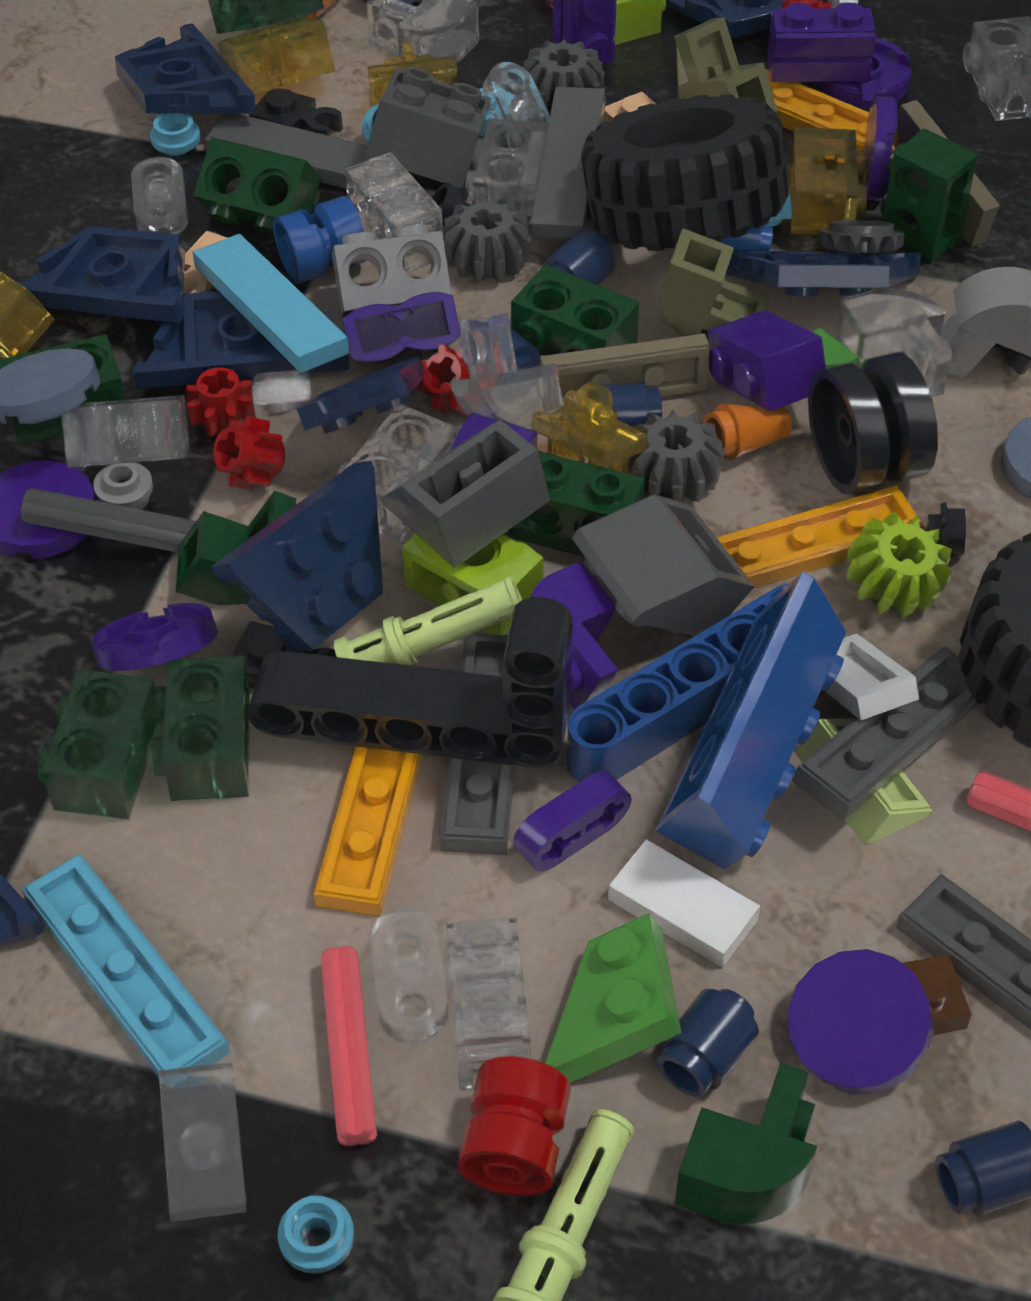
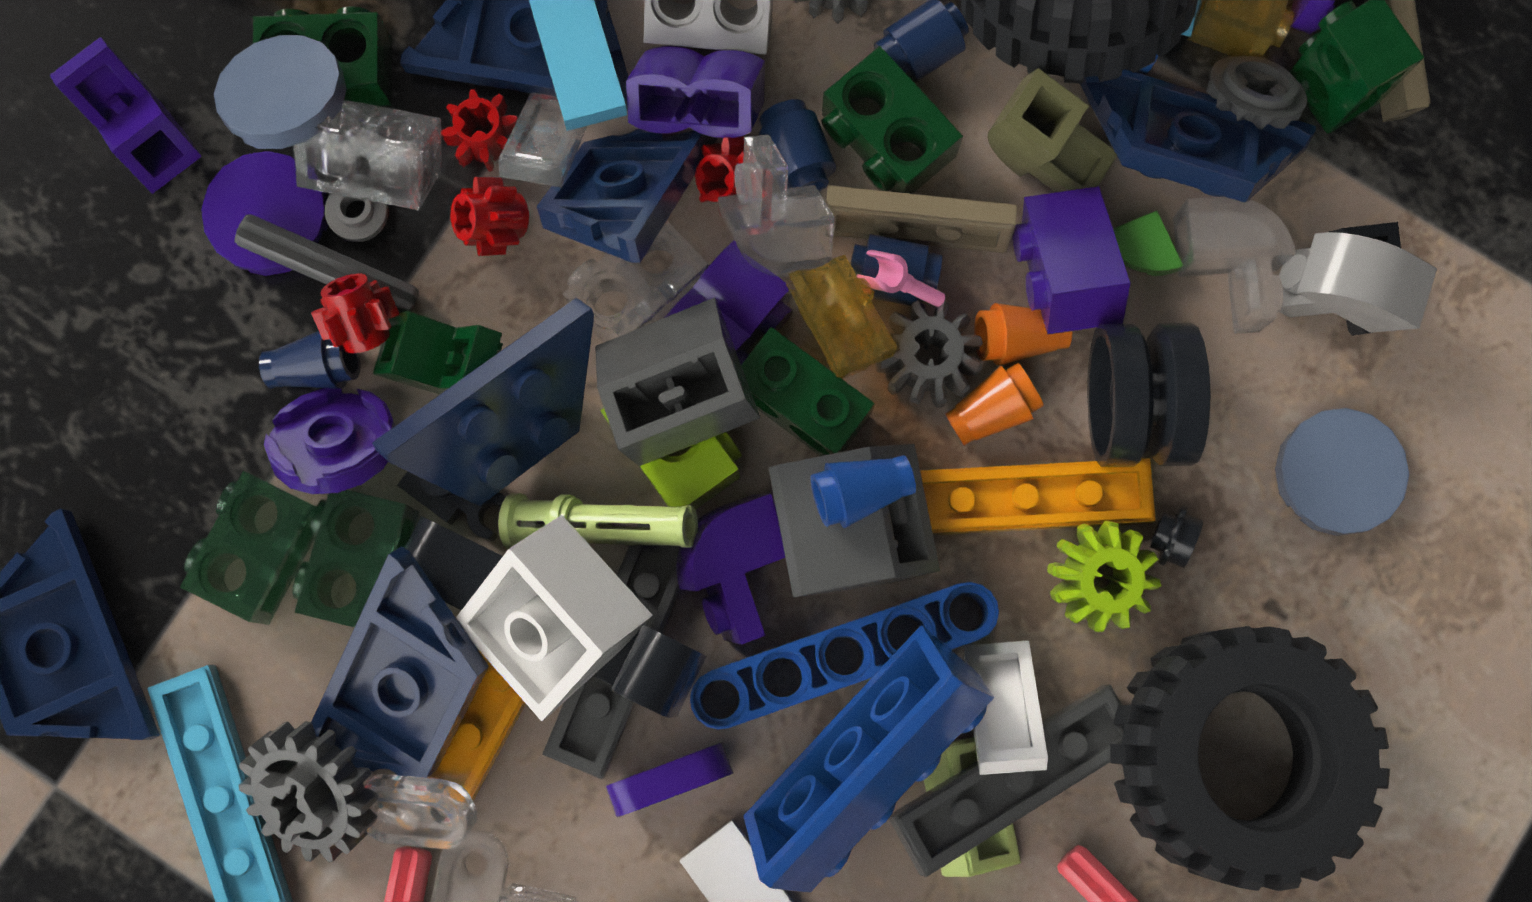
camera: 20 degrees right, 30 degrees up
(114, 595) = (309, 364): none -> dark blue cone
(151, 531) = (355, 313): none -> red gear
(211, 935) = (308, 791): none -> dark grey gear
(282, 791) = (401, 676): none -> dark blue wing
(333, 902) = (421, 811): none -> clear plate
(416, 674) = (551, 616): none -> white slope
(624, 390) = (894, 277): none -> bright pink hand
(656, 511) = (859, 488): none -> blue cone
(750, 477) = (995, 405): none -> orange cone

